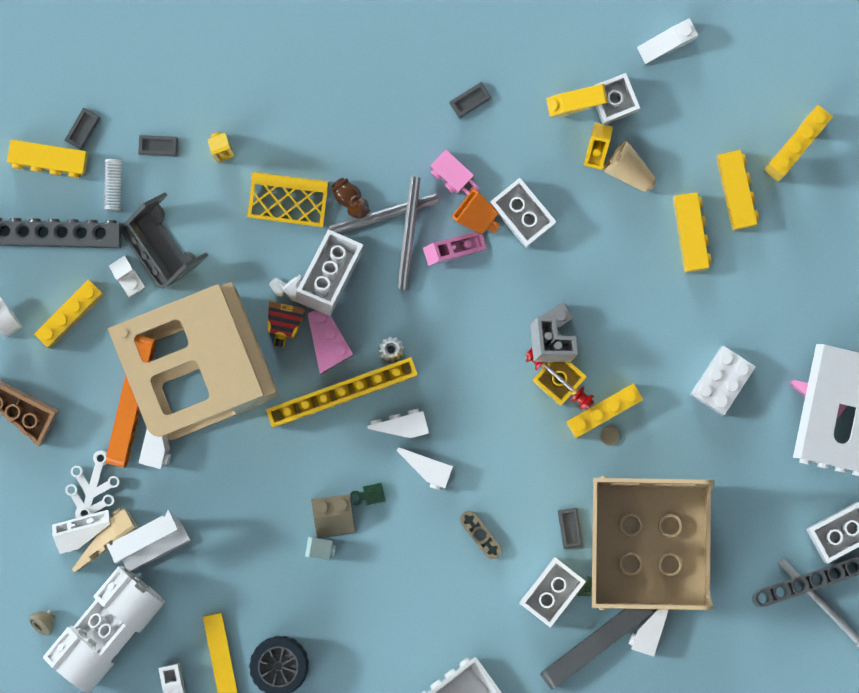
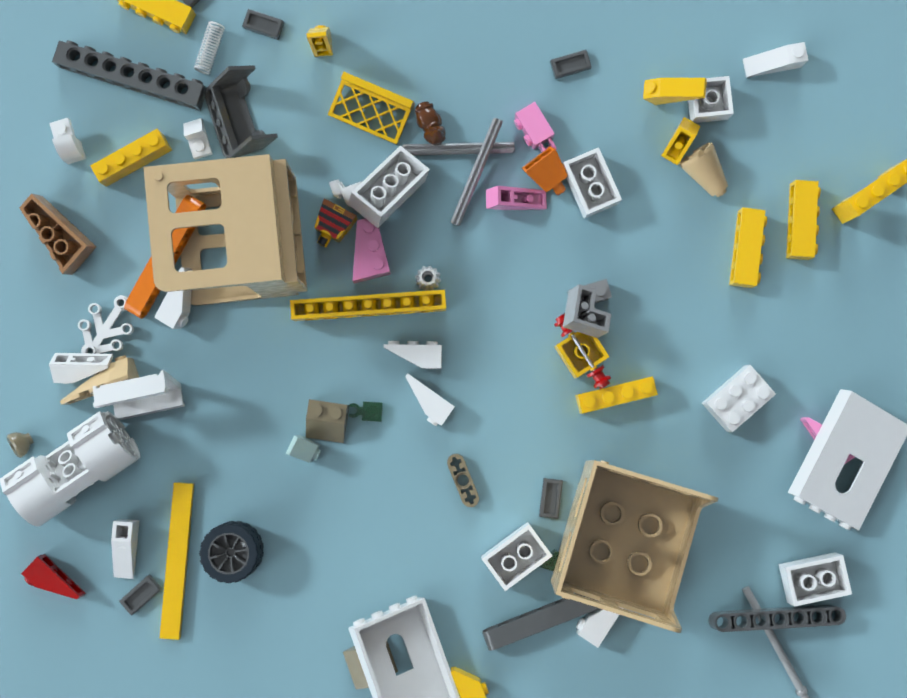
camera: 15 degrees right, 0 degrees up
(609, 436) = (613, 420): dark tan piece -> none

